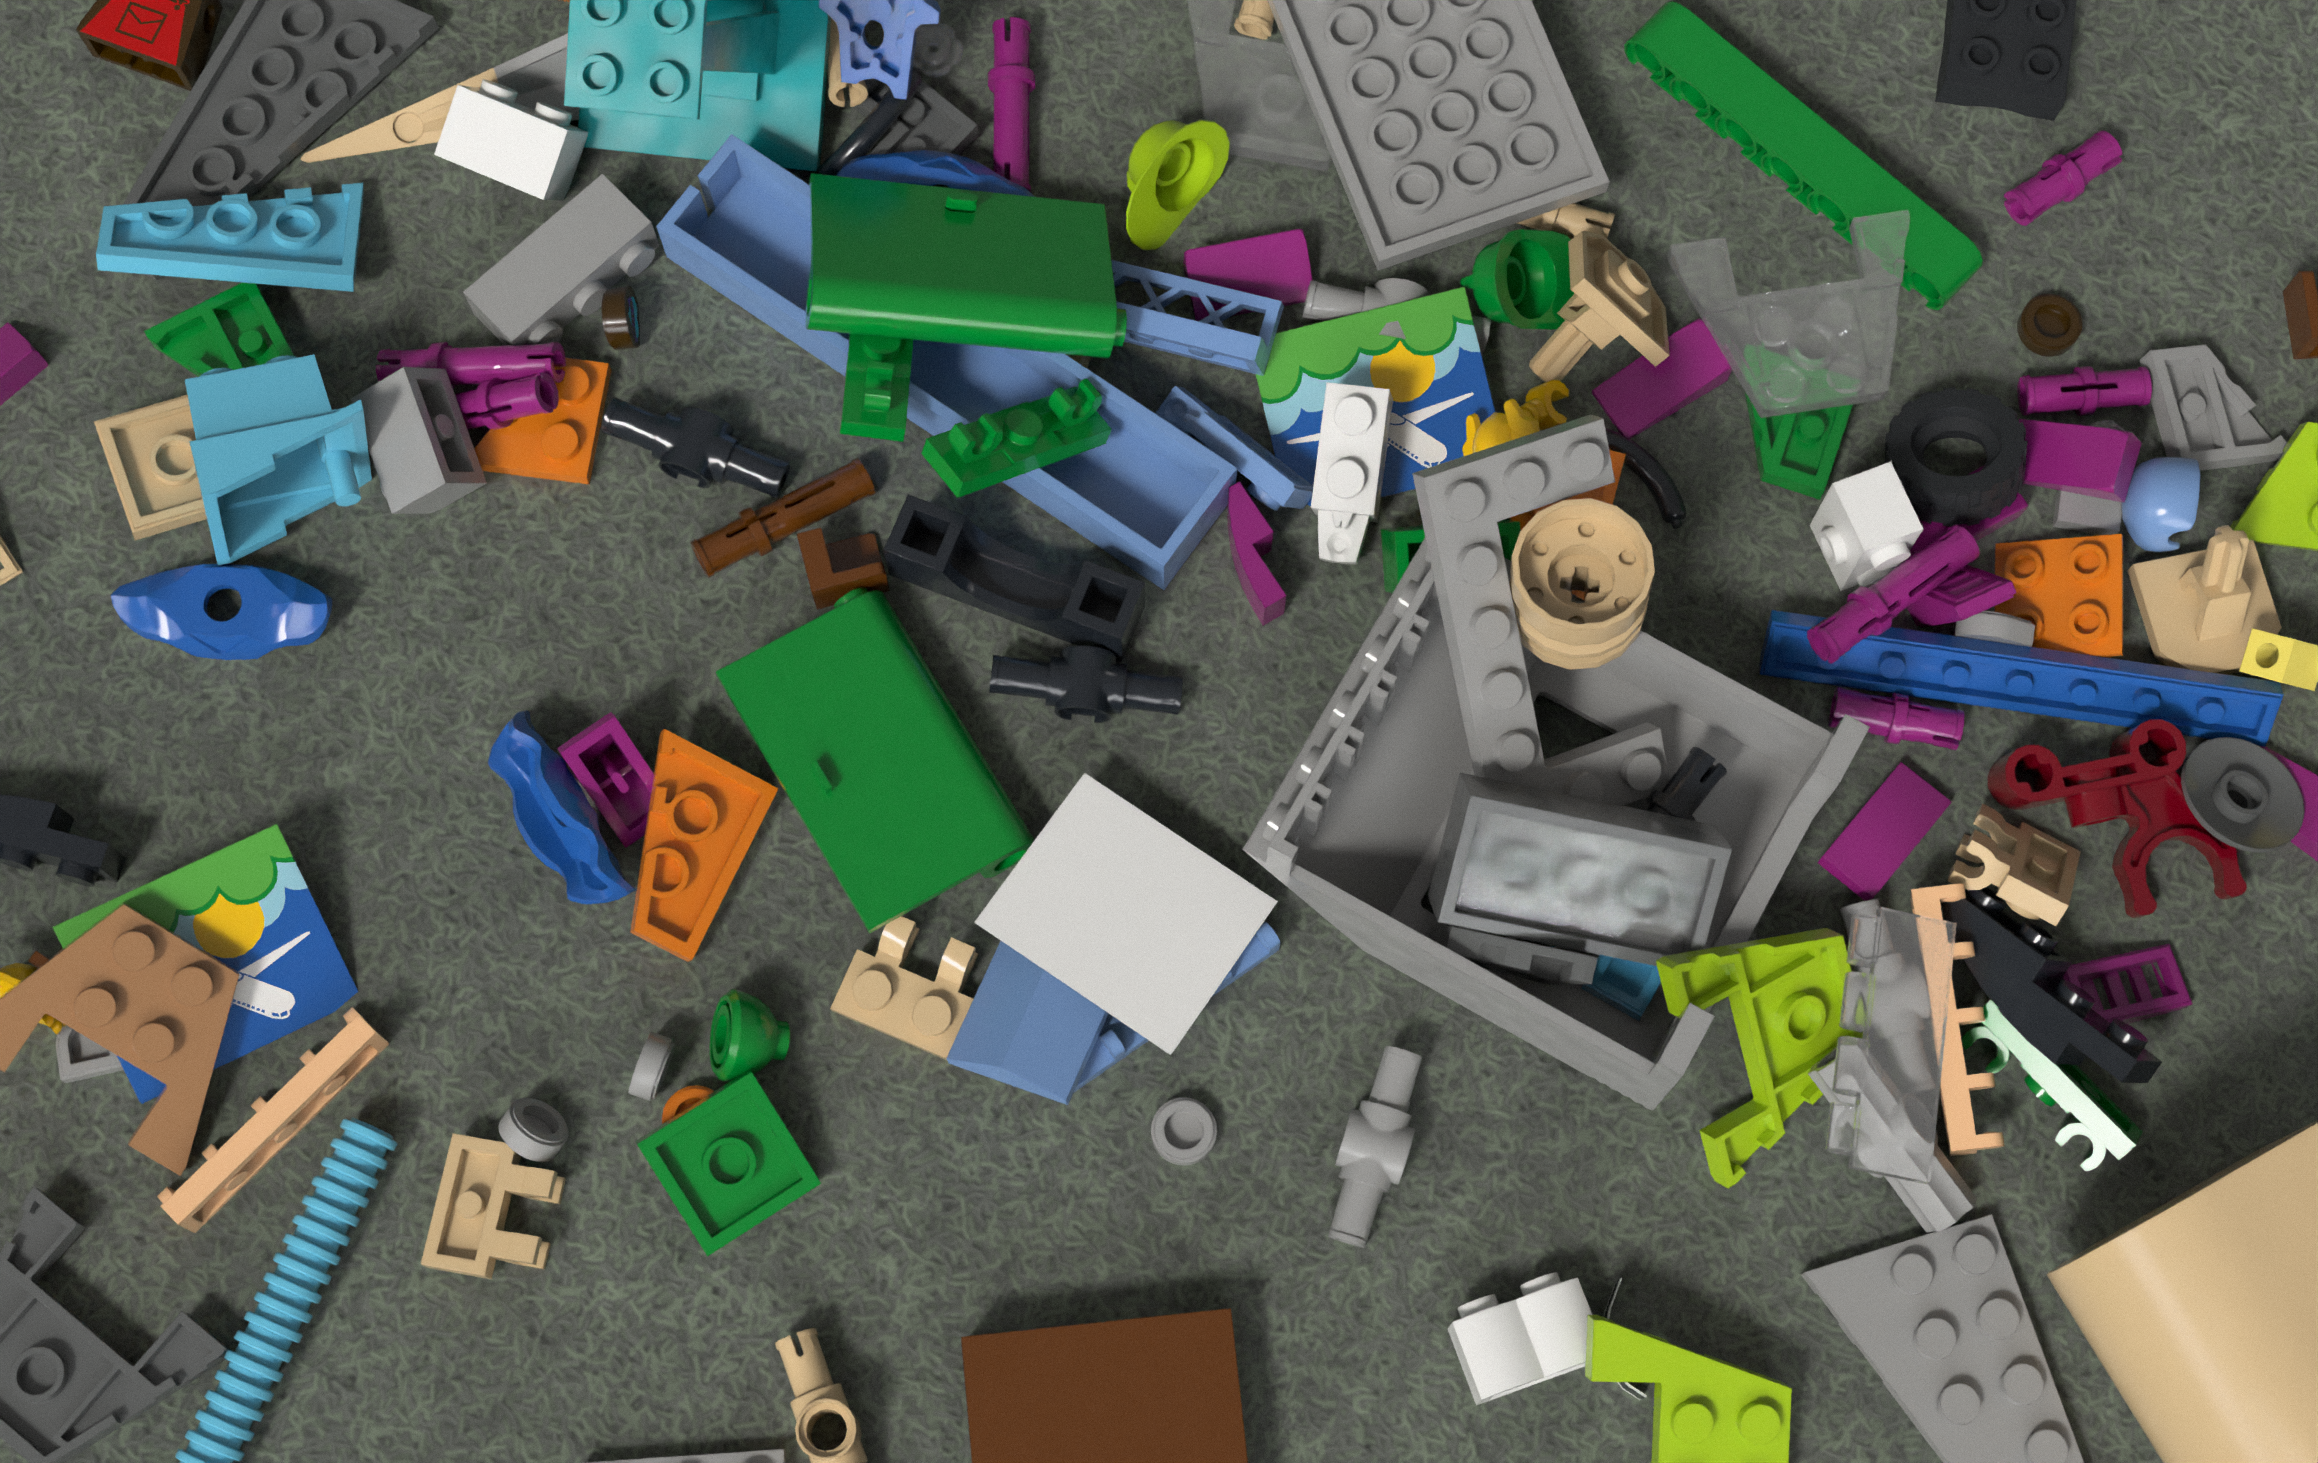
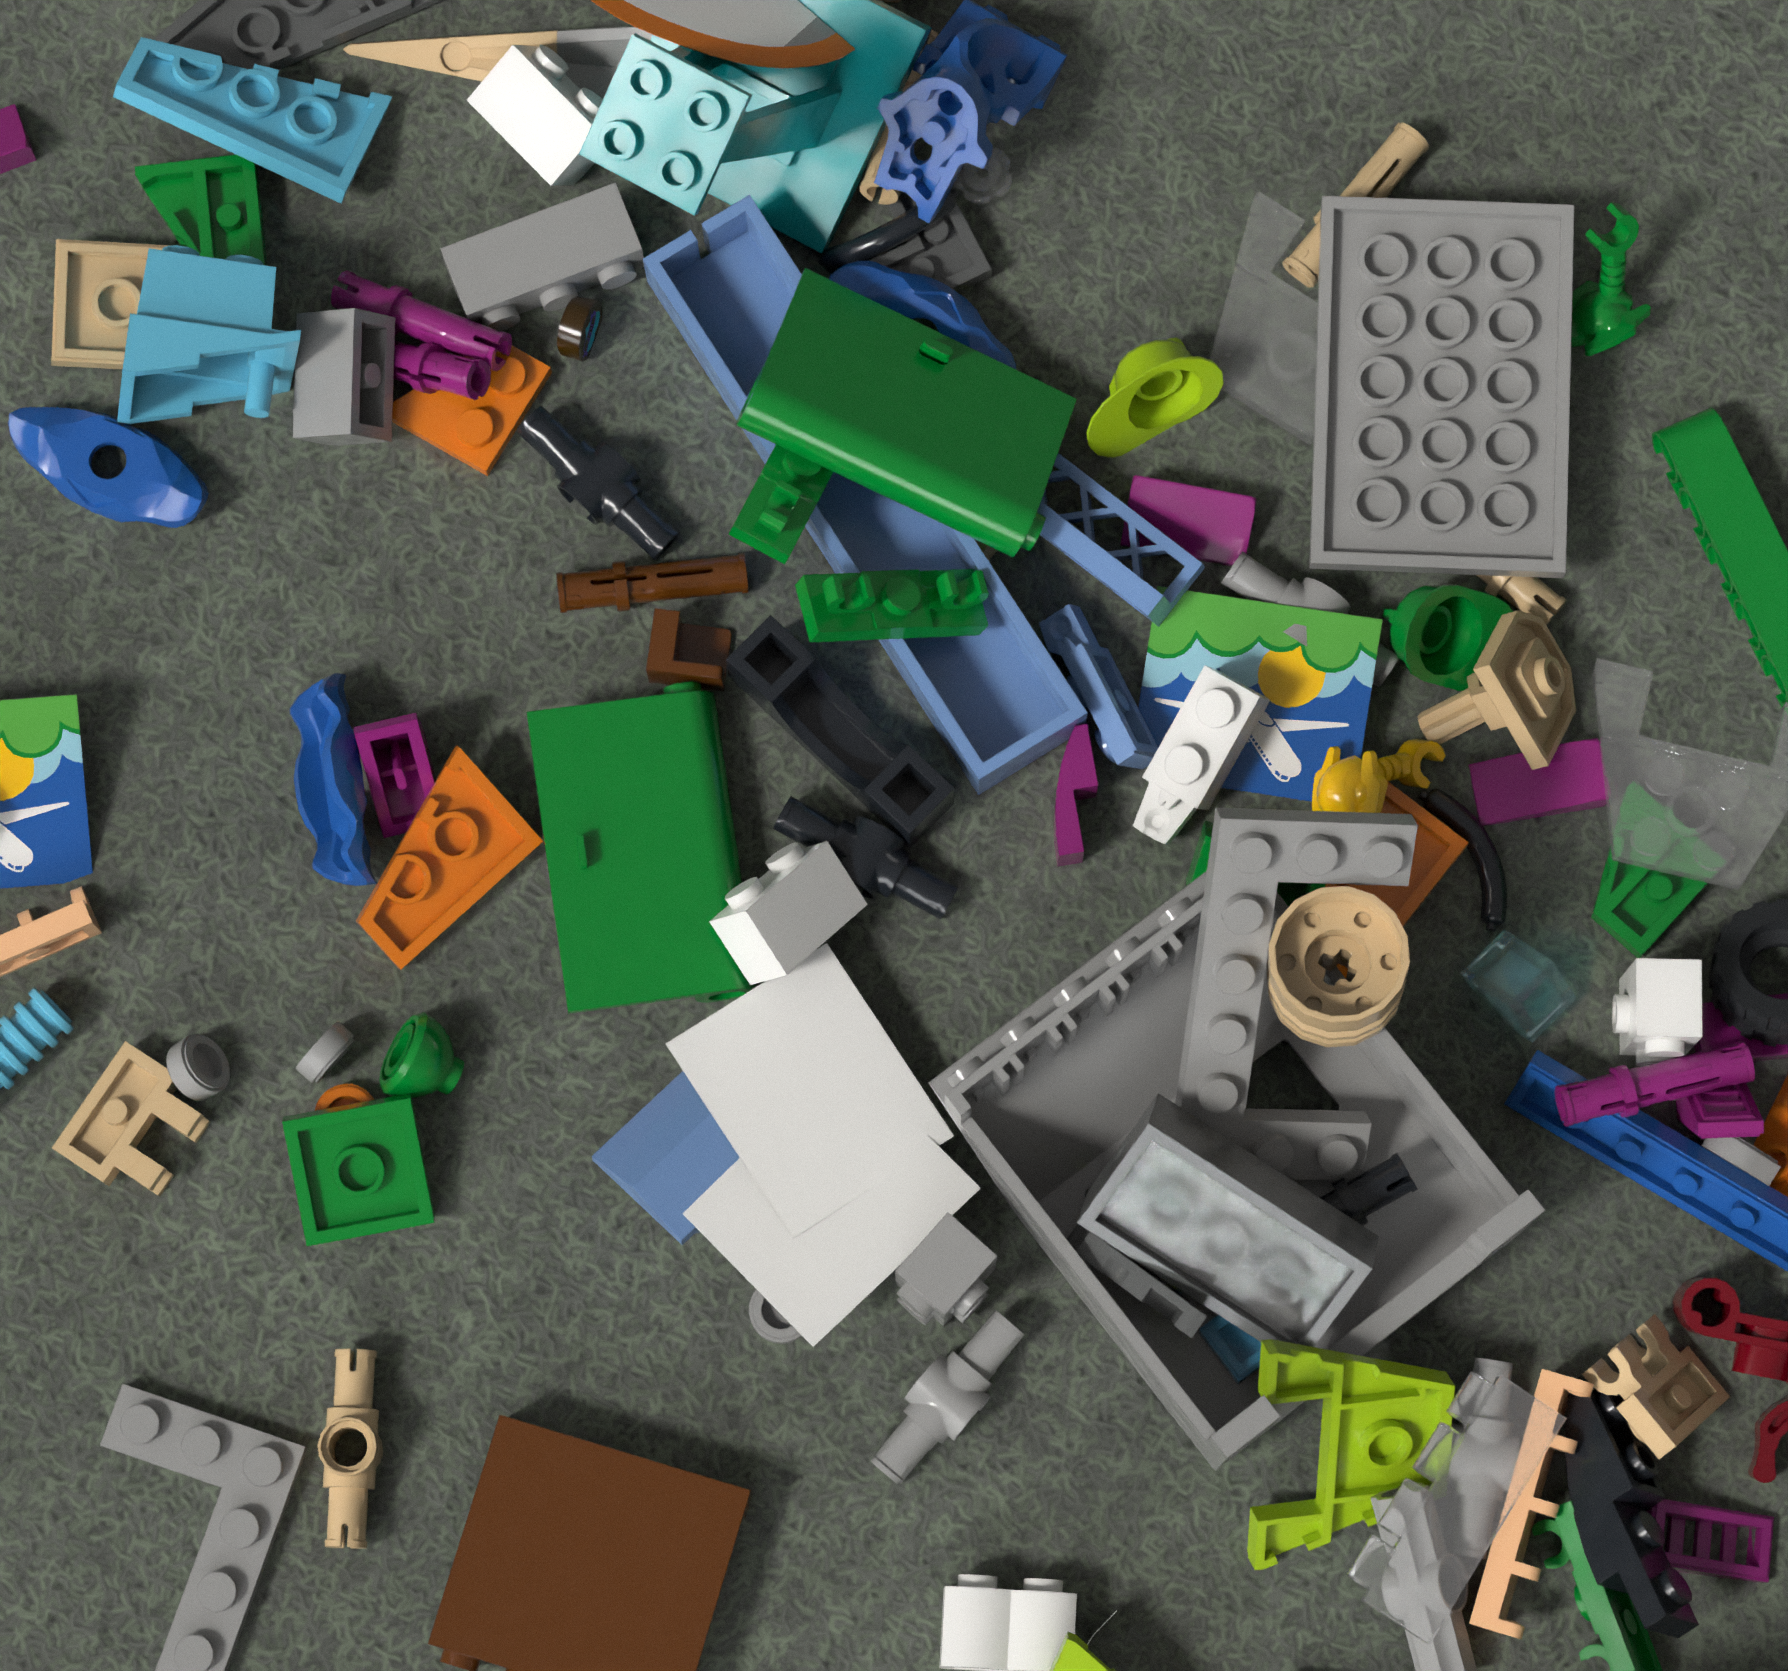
camera: 25 degrees right, 5 degrees up
(901, 1002) = (575, 1087): tan plate -> none
(1011, 85) = (1040, 242): magenta pin -> none
(1036, 756) = (787, 911): none -> white brick
(1224, 1054) = (843, 1257): none -> white sticker
(1327, 1029) = (945, 1274): none -> light grey brick
(1726, 562) = (1519, 985): none -> clear light blue brick
(1884, 832) = (1551, 1302): magenta slope -> none
(1899, 718) = (1613, 1199): magenta pin -> none

